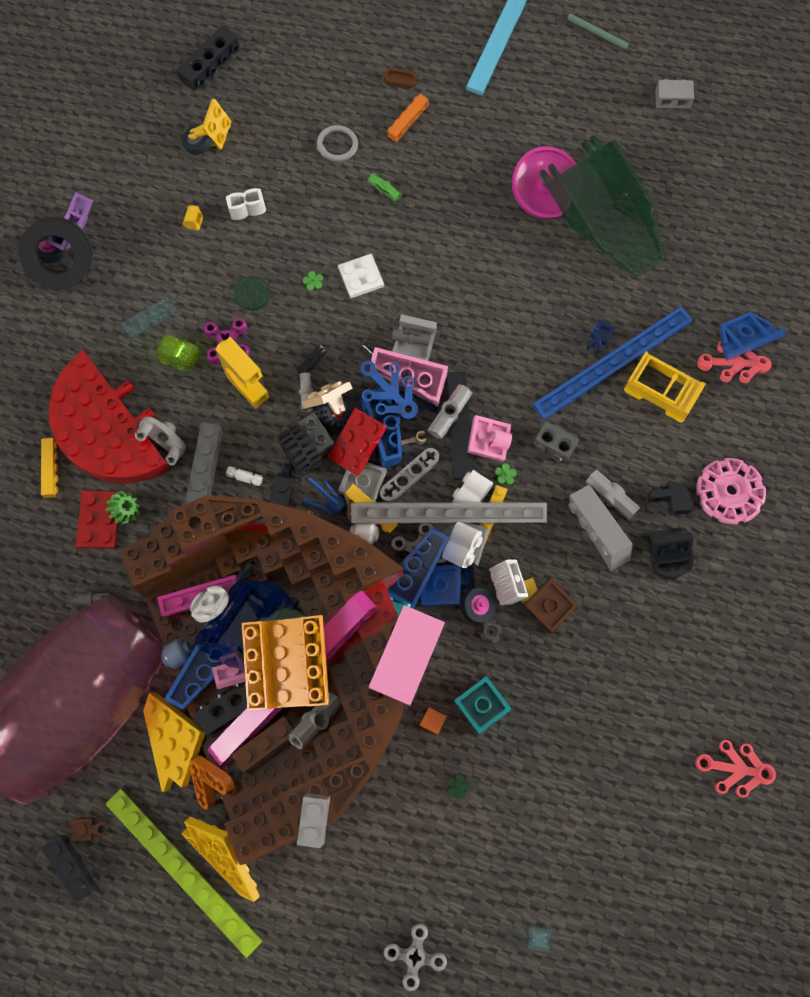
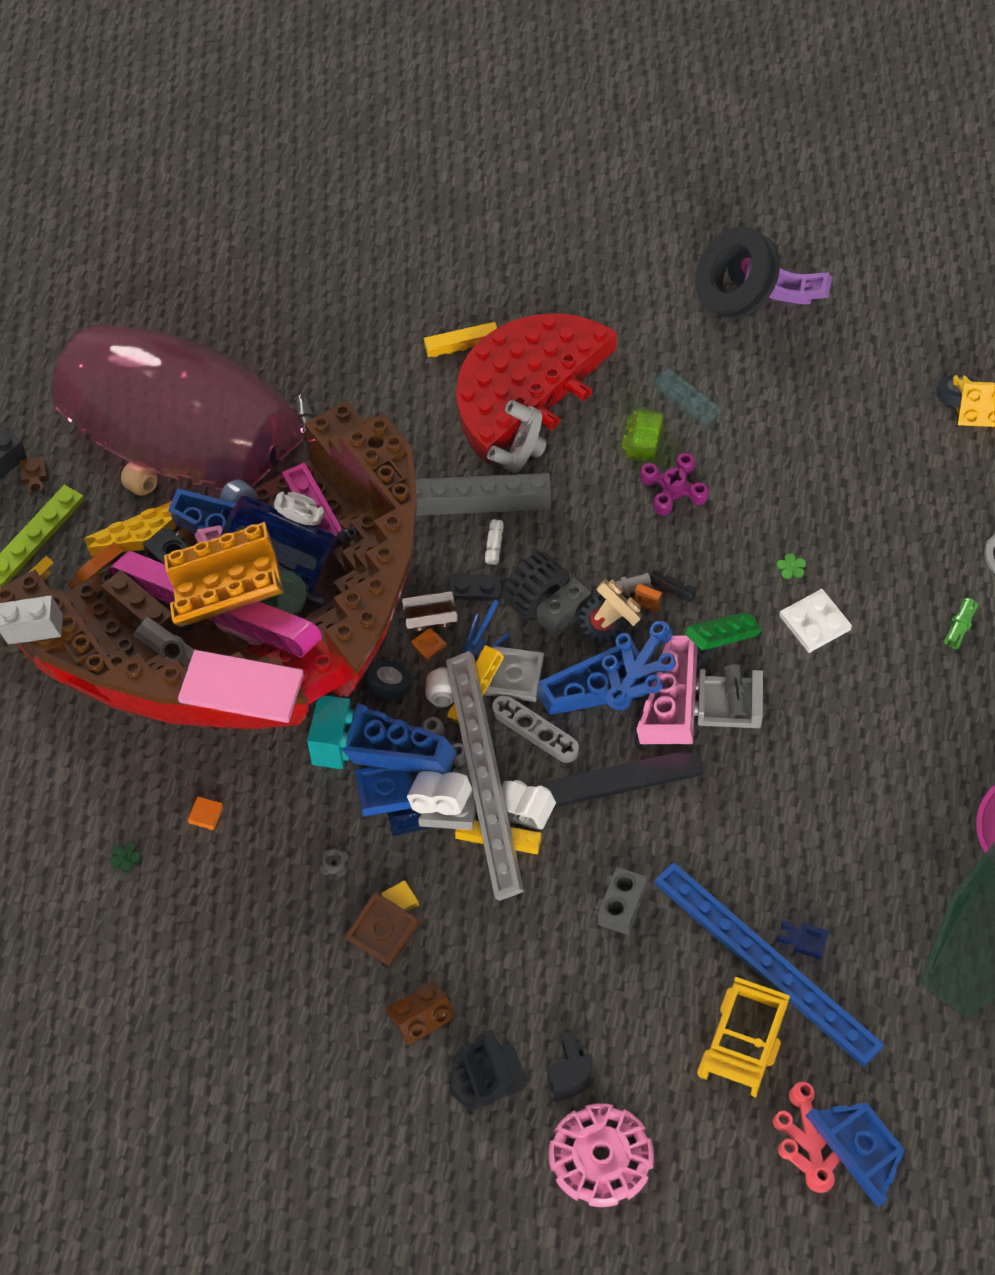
camera: 80 degrees right, 15 degrees down
(94, 524) = (408, 402): red plate -> none
(119, 742) = (138, 479): none -> tan head
(122, 500) = (425, 412): bright green gear -> none
(193, 218) = (841, 412): yellow brick -> none
(242, 372) = (624, 490): yellow arch -> none
(245, 204) = (877, 462): white brick -> none
(251, 293) = (752, 499): clear green tile -> none
(320, 378) = (648, 598): none -> orange tile
(357, 442) = (561, 648): red plate -> none
(367, 331) = (723, 630): none -> green plate
(414, 439) = (588, 726): tan hand -> none
(455, 402) = (647, 759): light grey piece -> none
(478, 605) = (366, 837): black wheel -> none
(482, 705) = (229, 860): teal brick -> none
(489, 438) = (607, 813): bright pink plate -> none
(505, 474) = (562, 847): bright green plant -> none
(508, 582) = (403, 868): white brick -> none
(601, 527) = (503, 974): light grey wedge -> none
(612, 494) = (558, 987): light grey piece -> none
(615, 589) = (421, 1012): none -> reddish brown bracket
(738, 769) = (187, 1210): coral plant -> none

